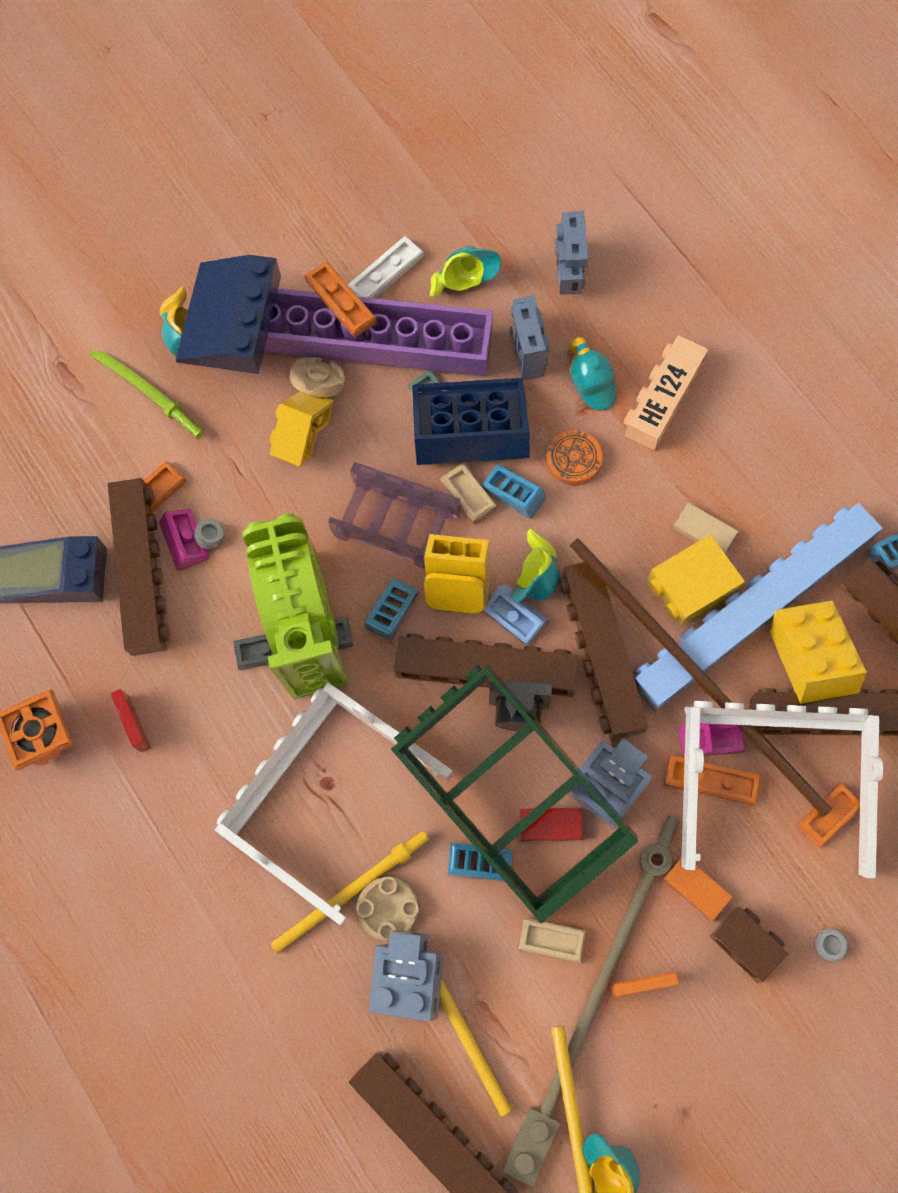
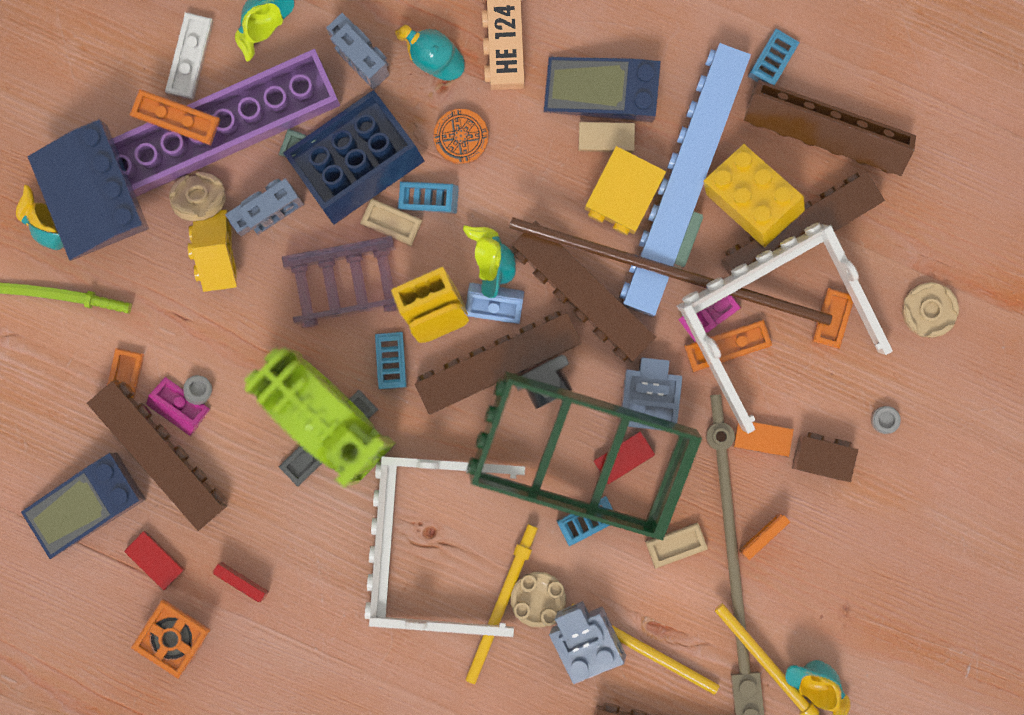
camera: 40 degrees left, 15 degrees up
(71, 657) = (154, 560): none -> red tile
(367, 415) = (265, 209): none -> sand blue piece
(728, 486) = (603, 87): none -> slope
(731, 658) = (688, 240): none -> sand green tile

